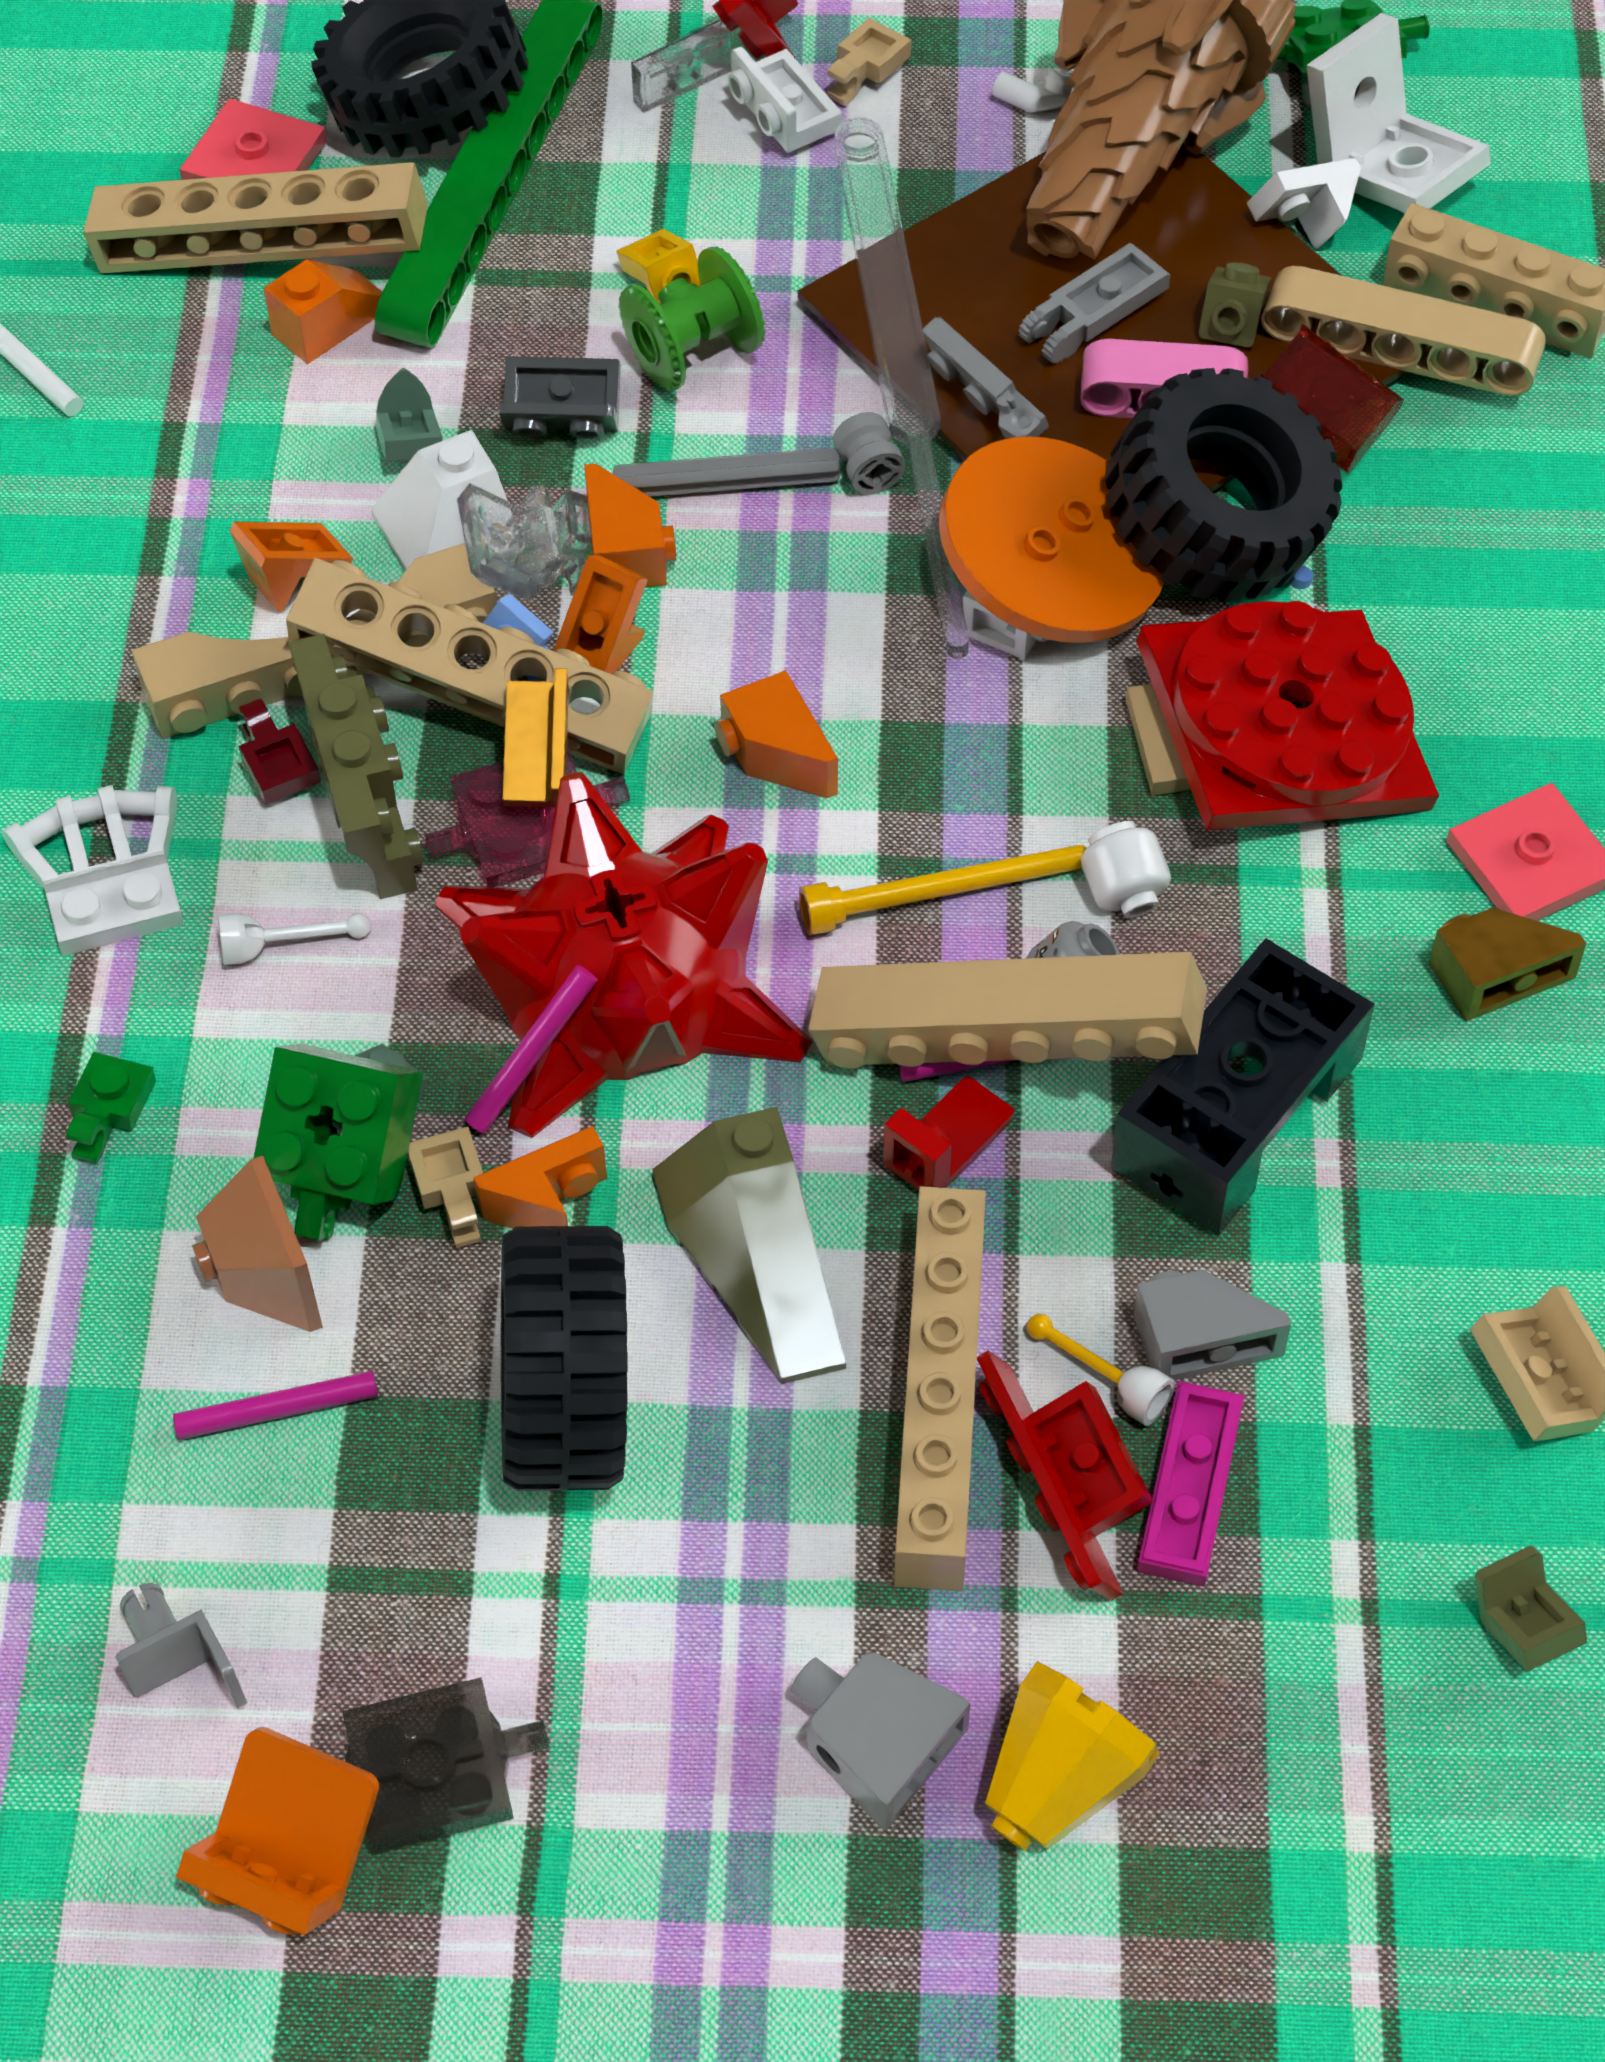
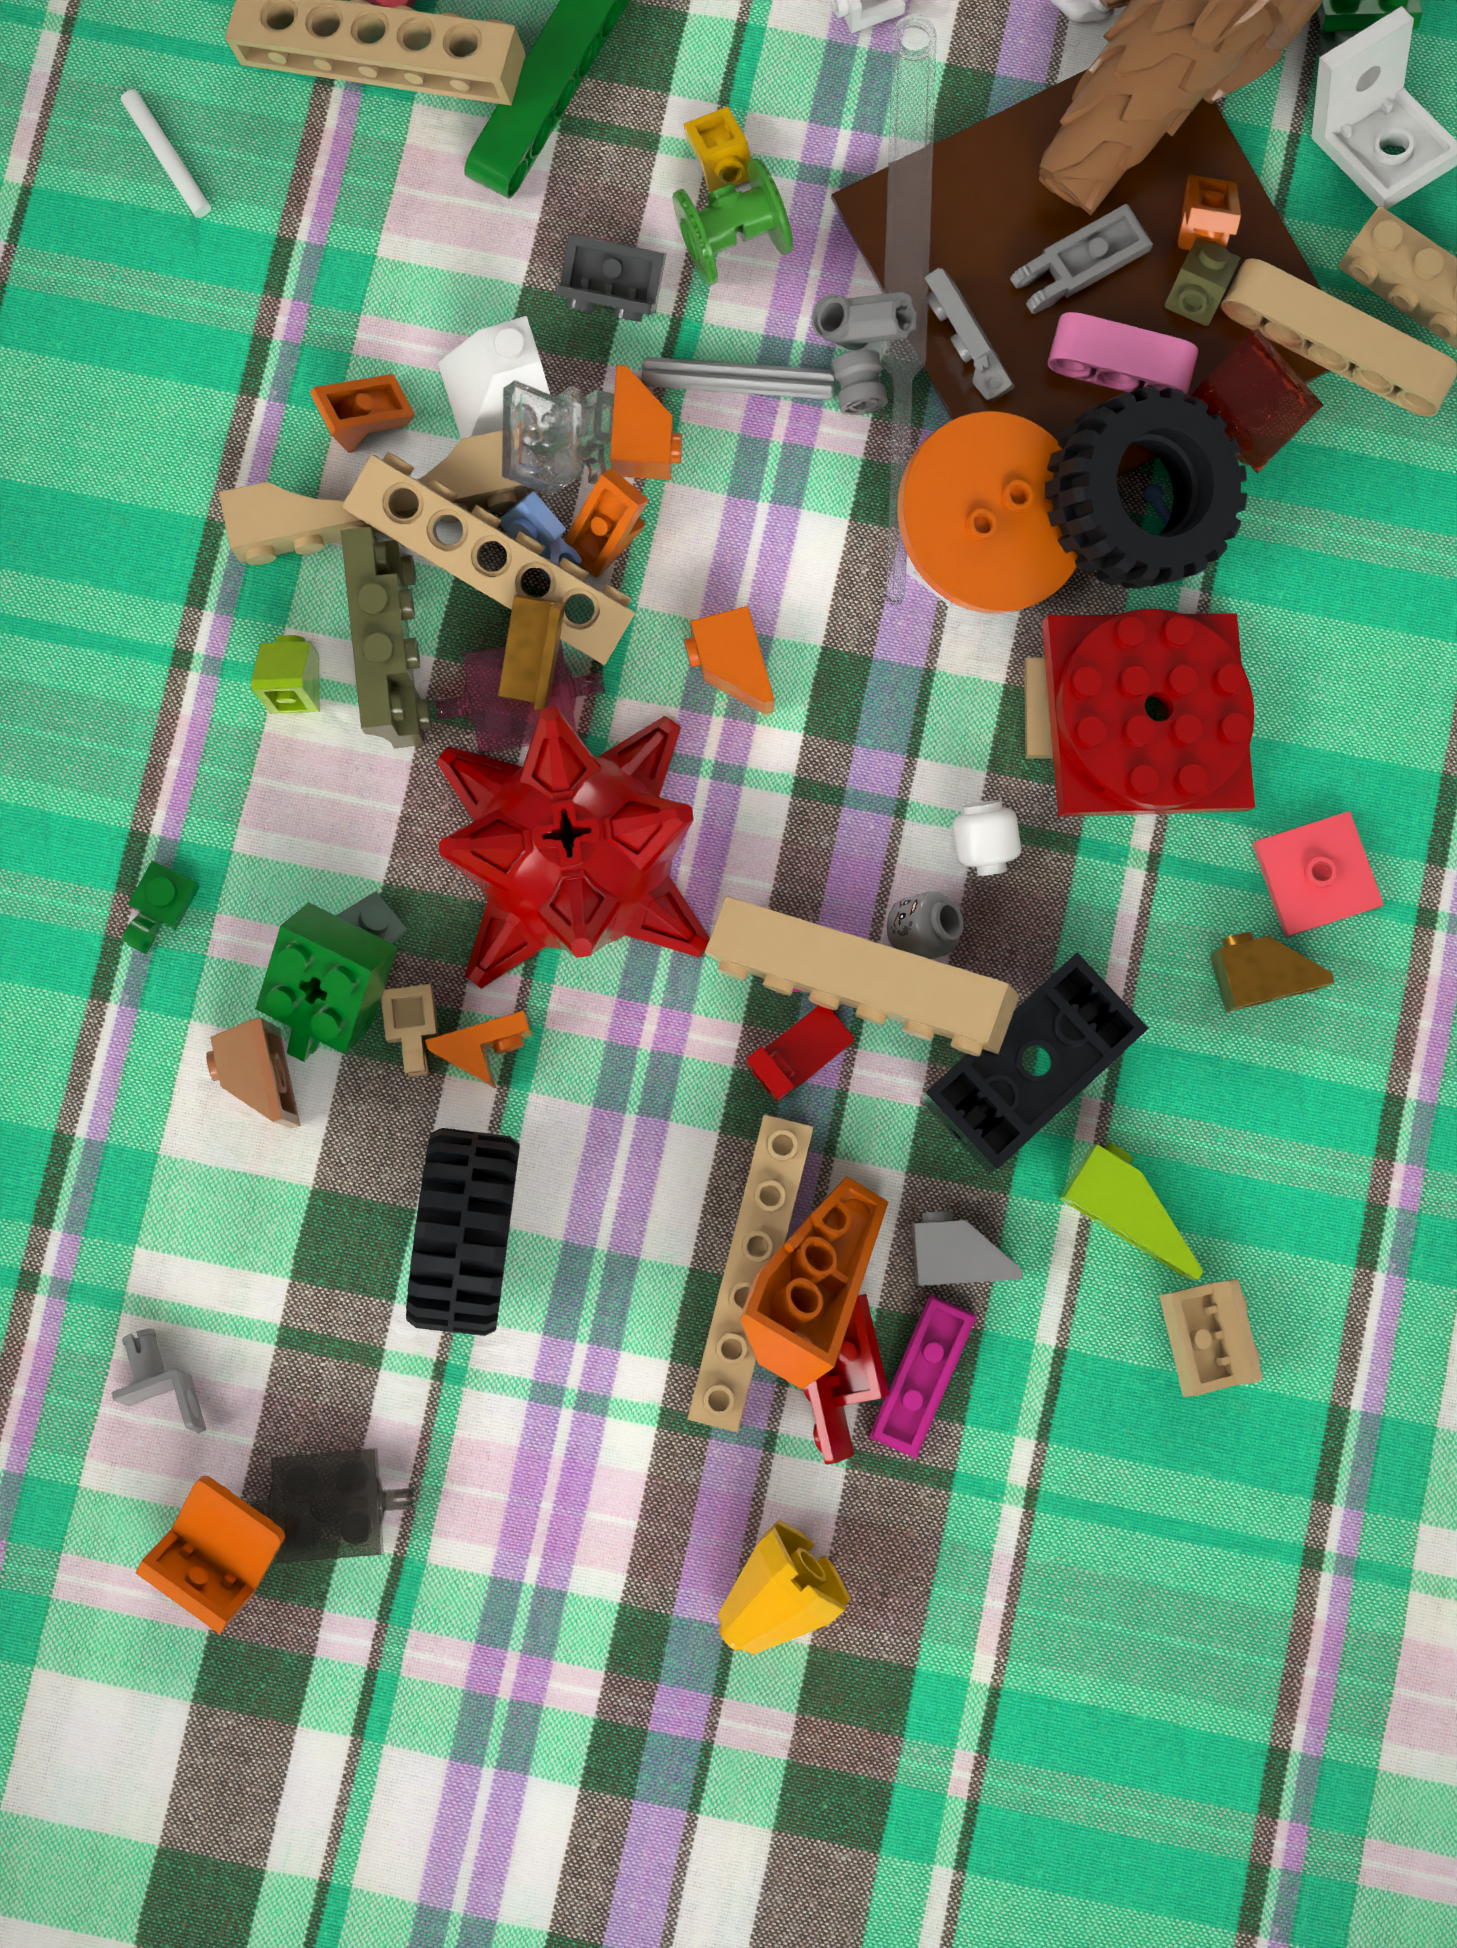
camera: 10 degrees right, 25 degrees up
(111, 898) = (179, 715): white plate -> none
(241, 832) = (287, 675): none -> lime slope
(244, 937) = (280, 774): white hinge -> none
(275, 757) = (326, 605): dark red plate -> none
(275, 1405) = (256, 1190): dark pink piece -> none
(319, 307) = (424, 141): orange slope -> none
(405, 418) = (477, 285): sand green plate -> none
(531, 1049) = (487, 932): dark pink bar -> none
(747, 1227) = (629, 1106): olive wedge -> none
(826, 906) = (745, 825): yellow piece -> none
(862, 384) = (864, 319): none -> light grey piece
(880, 1729) = (652, 1539): light grey torso -> none
(1022, 1366) = (812, 1284): none -> orange wedge
(1141, 1390) = (899, 1296): hinge -> none
(1223, 241) = (1208, 211): none -> orange slope
(1313, 193) = (1301, 176): white slope -> none
(1404, 1238) = (1125, 1204): none -> lime slope
(1526, 1611) = (1143, 1533): olive bracket -> none

